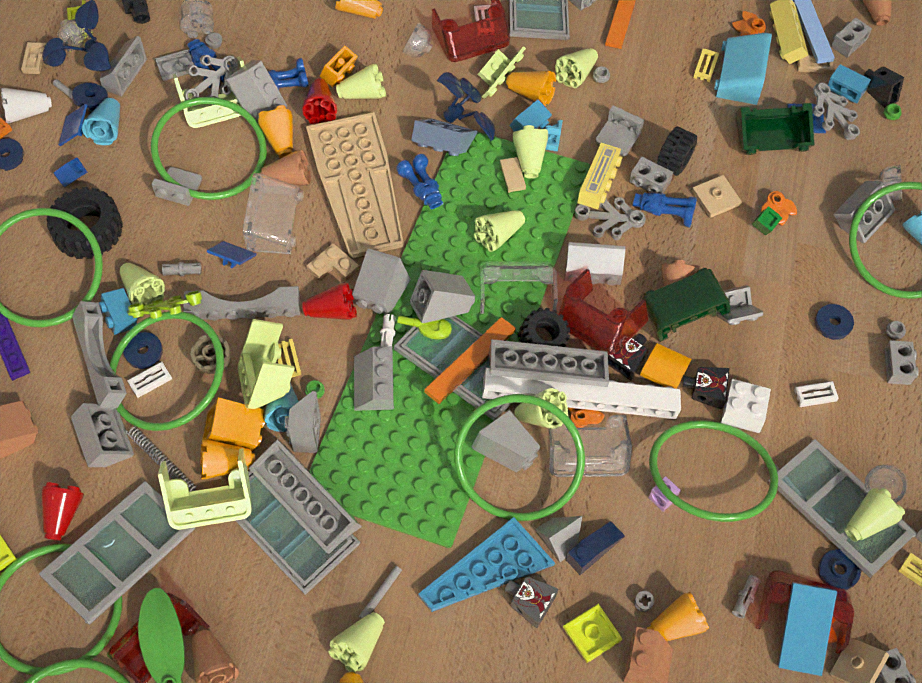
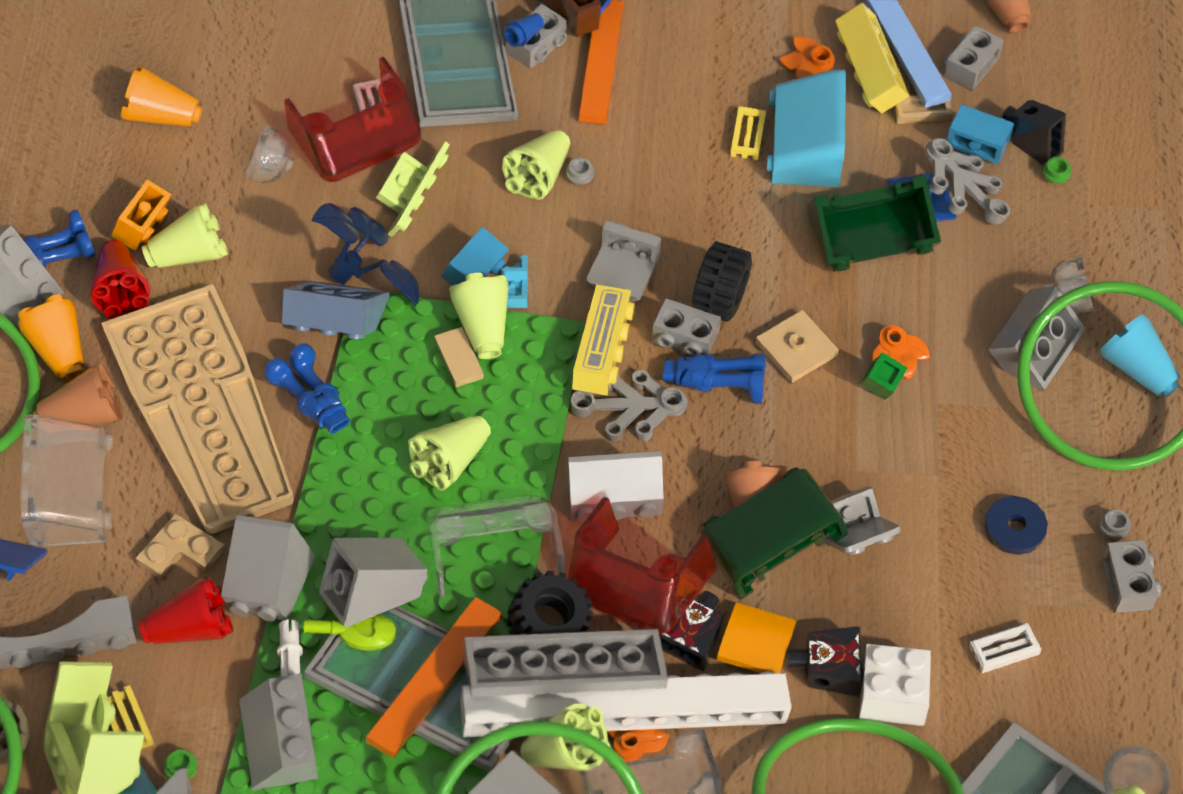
camera: 10 degrees left, 5 degrees down
(533, 85) = (470, 203): light orange cone -> none

